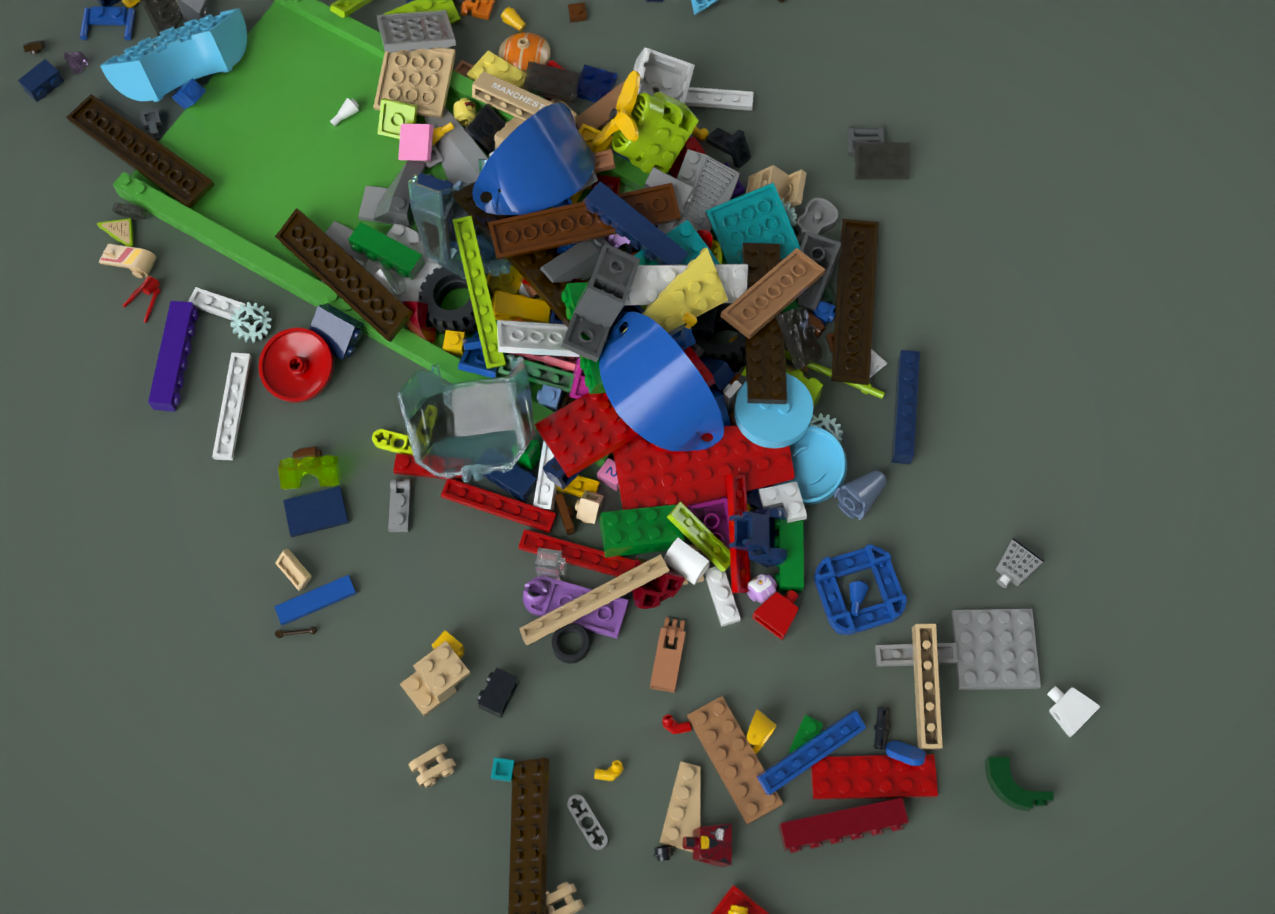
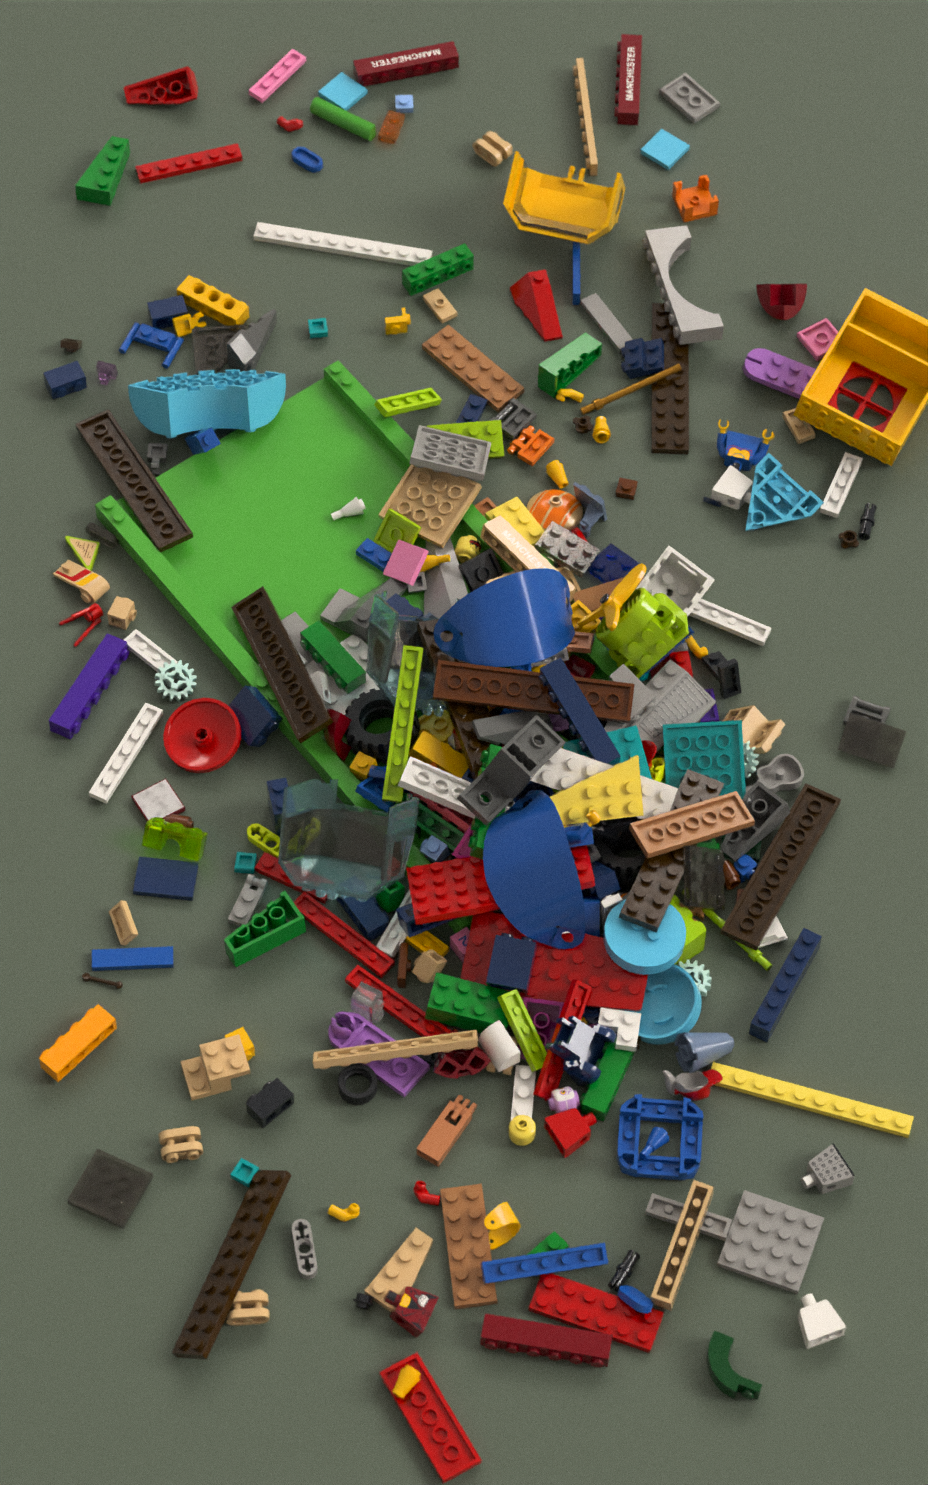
camera: 20 degrees right, 10 degrees down
(176, 276) = (121, 613): none -> tan brick
(280, 441) = (158, 801): none -> flat silver tile
(296, 704) = (77, 1042): none -> light orange brick
(382, 469) = (245, 862): none -> teal tile
(383, 144) = (374, 554): none -> blue plate
(383, 835) = (110, 1188): none -> clear smoke plate
(390, 405) = (275, 794): none -> dark blue brick
(428, 528) = (265, 931): none -> green wedge
(558, 35) = (594, 505): none -> sand blue plate
(666, 479) = (511, 963): none -> dark blue brick
(741, 635) = (522, 1130): none -> light yellow head
(868, 529) = (692, 1085): none -> hair
(970, 503) = (814, 1100): none -> light yellow plate

